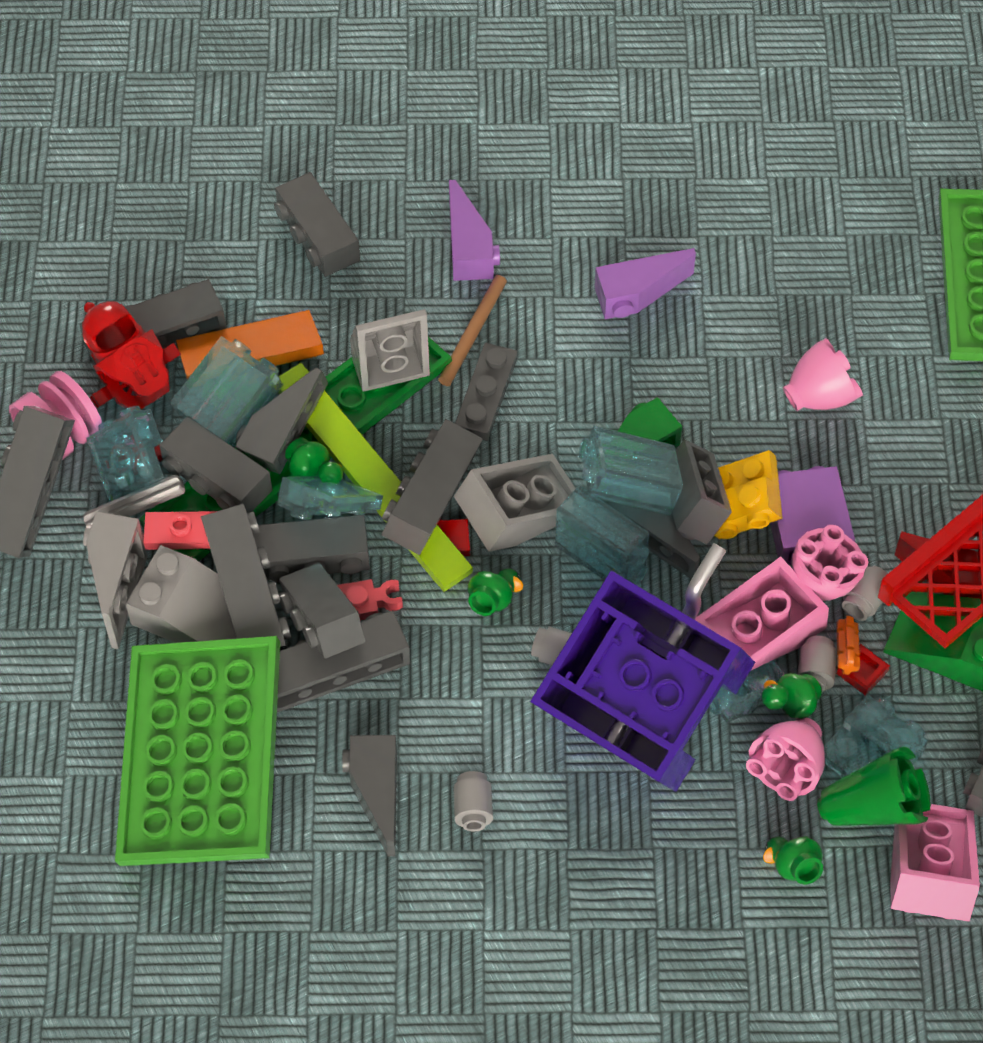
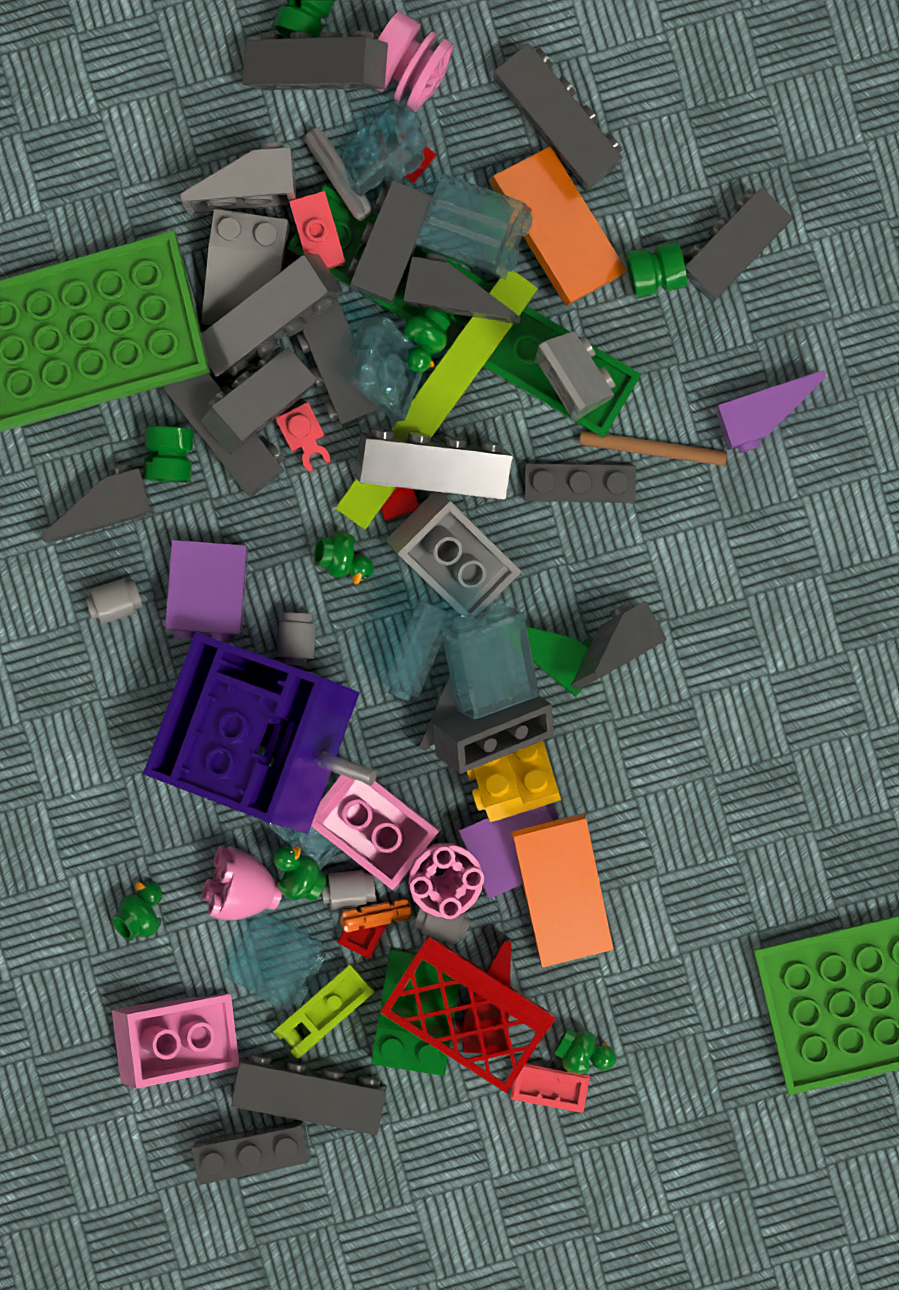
camera: 70 degrees right, 30 degrees up
(125, 355) = (488, 129): red helmet -> none
(316, 283) = (656, 269): none -> green wheel
(344, 712) = (168, 454): none -> green wheel
(486, 714) = (206, 589): none -> medium lavender brick
(636, 283) = (752, 603): medium lavender slope -> none
(642, 379) = (619, 641): none -> dark grey slope
(822, 380) = (675, 825): bright pink piece -> none
(861, 478) = (562, 890): none -> orange tile
(878, 793) = (212, 979): green cone -> none
(931, 710) = (325, 1010): none -> lime plate

